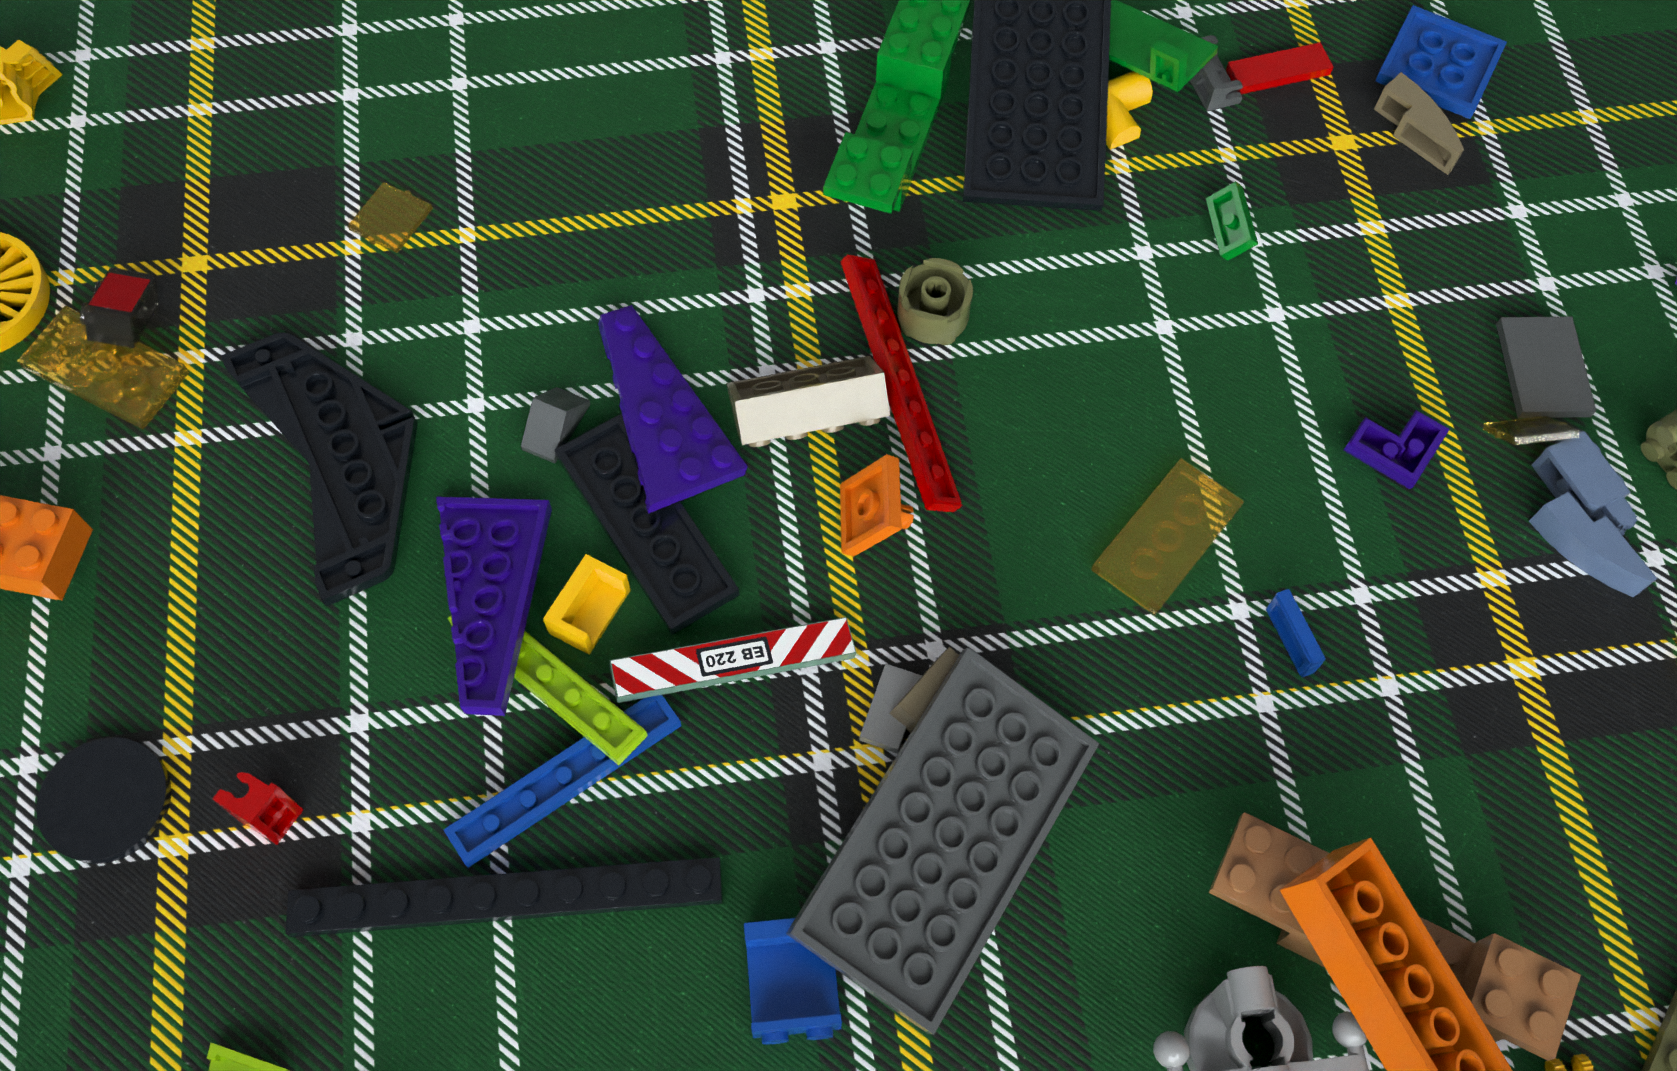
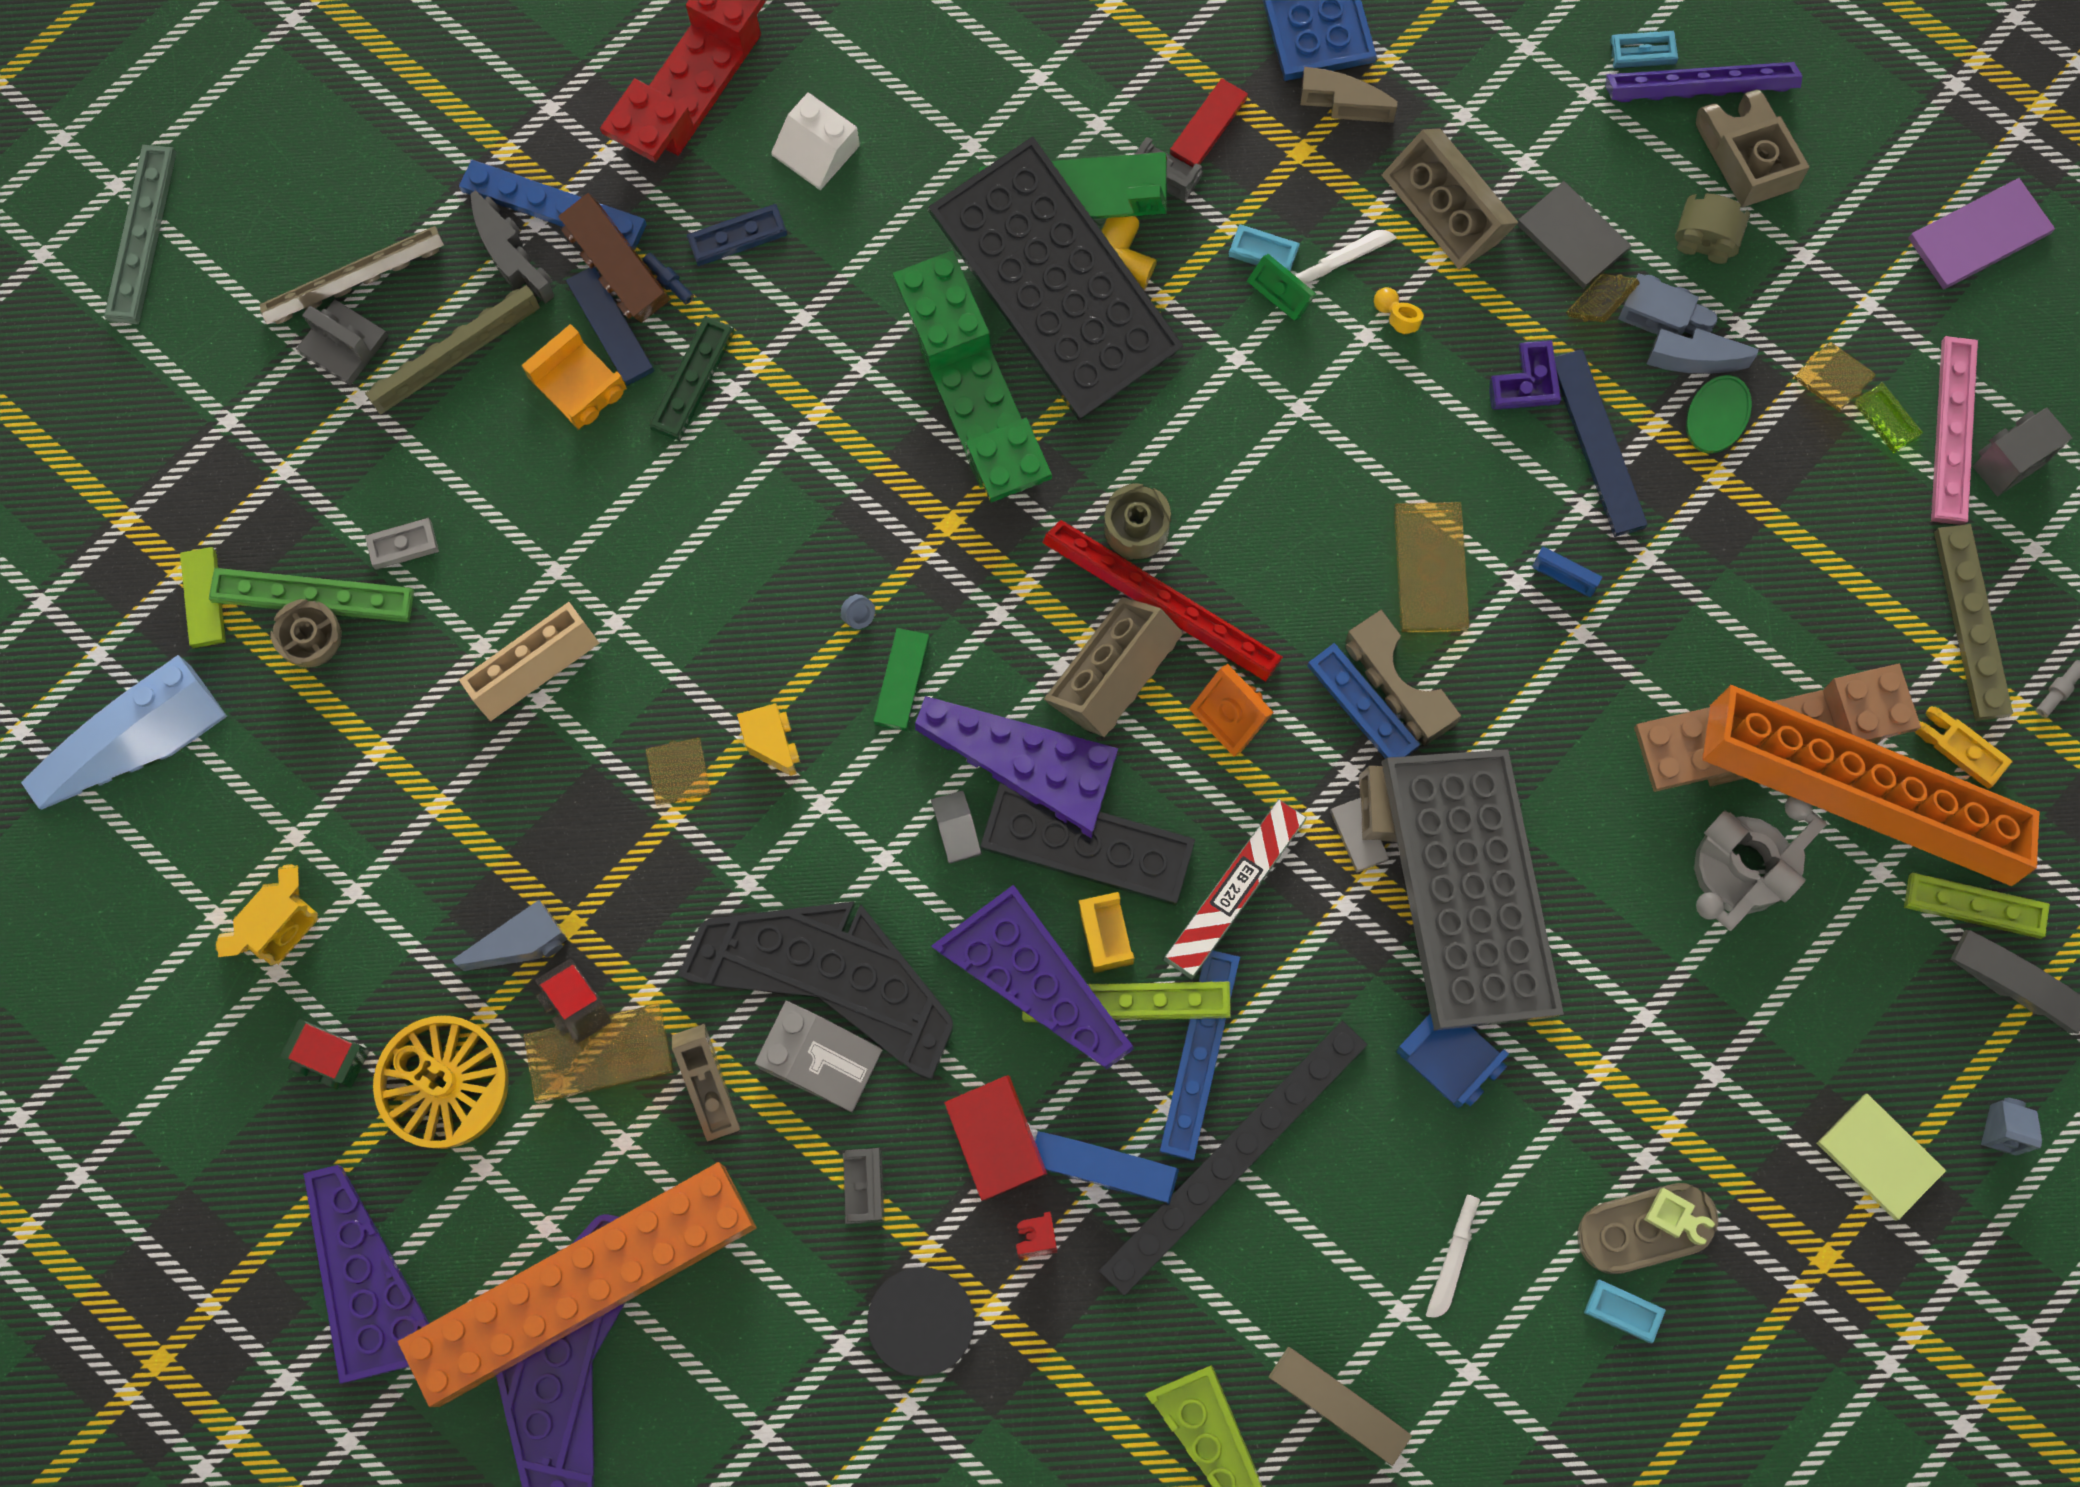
camera: 35 degrees left, 10 degrees up
(146, 238) = (520, 939): none -> sand blue slope
(152, 451) = (705, 1082): none -> dark tan slope
(183, 646) = (863, 1186): none -> dark grey hinge
(256, 506) = (818, 1056): none -> light grey slope
(322, 697) = (995, 1138): none -> red tile
(361, 53) = (529, 661): none -> tan brick
(383, 803) = (1107, 1167): none -> blue slope
(480, 238) = (766, 738): none -> yellow slope
(627, 280) = (901, 679): none -> green tile
(642, 204) = (857, 611): none -> sand blue tile
(998, 596) = (1362, 703): none -> blue plate
(1050, 648) = (1425, 712): none -> dark tan arch
(1257, 195) = (1252, 244): none -> medium azure tile
(1316, 241) = (1349, 253): none -> white piece
(1322, 317) = (1403, 316): none -> yellow plate
(1422, 553) = (1599, 444): none -> dark blue tile
(1449, 257) = (1449, 197): none -> dark tan slope
(1568, 612) = (1718, 414): none -> green piece

